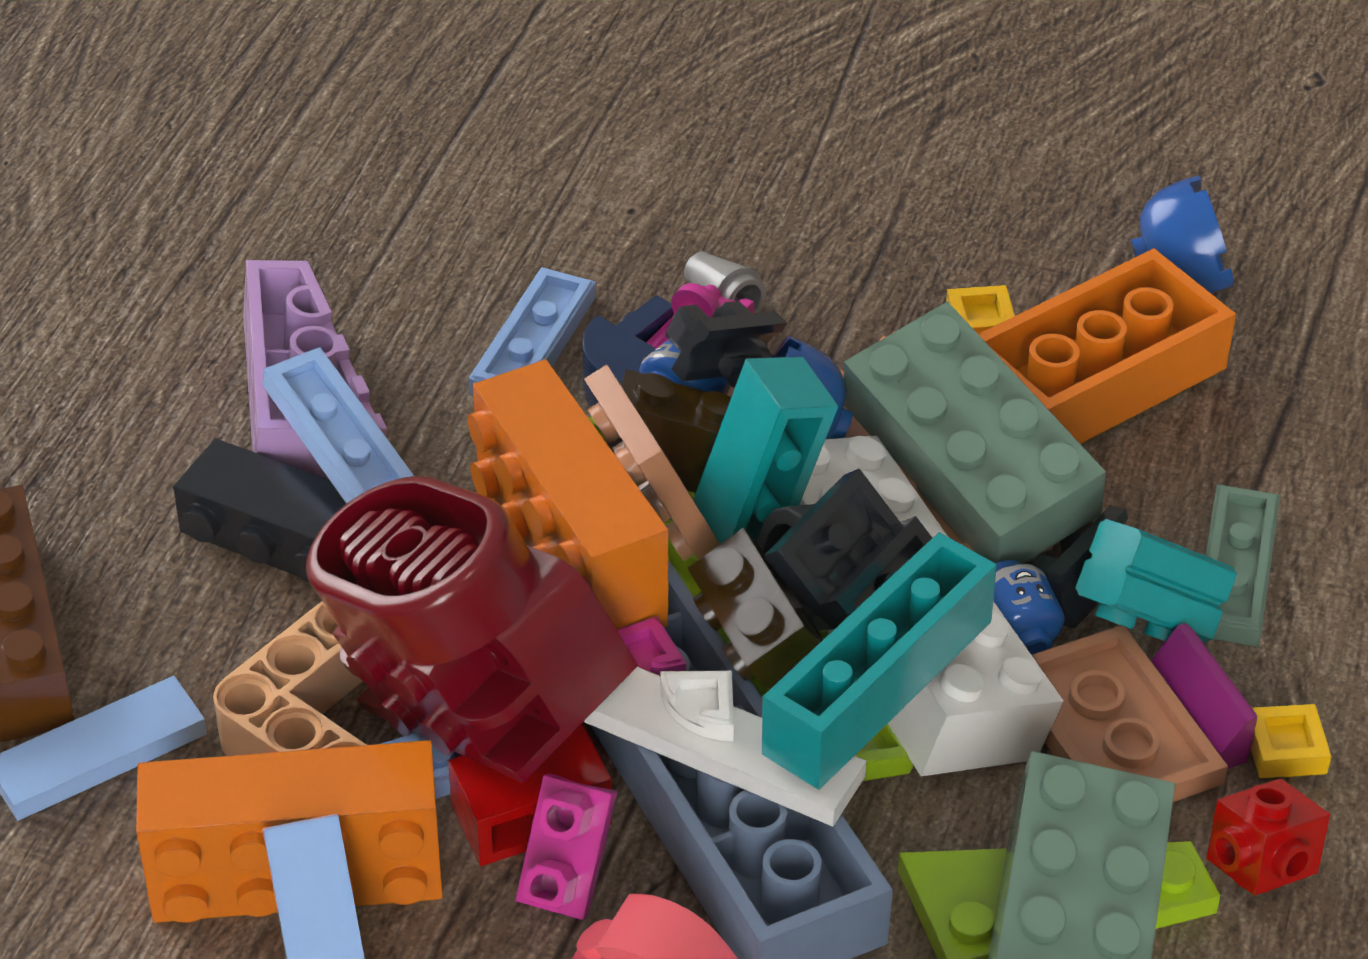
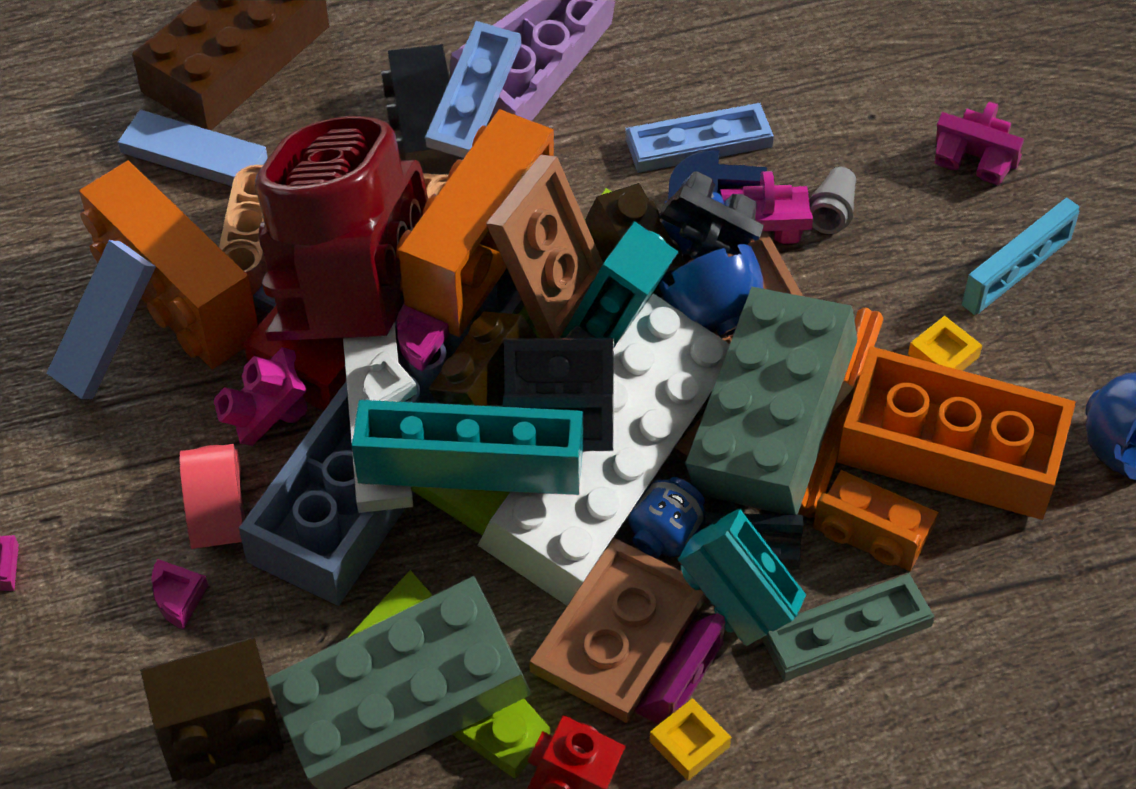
camera: 55 degrees right, 10 degrees up
(755, 146) = (979, 136): none -> dark pink hips
(922, 205) = (1020, 256): none -> medium azure tile
(1151, 470) = (874, 520): none -> orange bracket

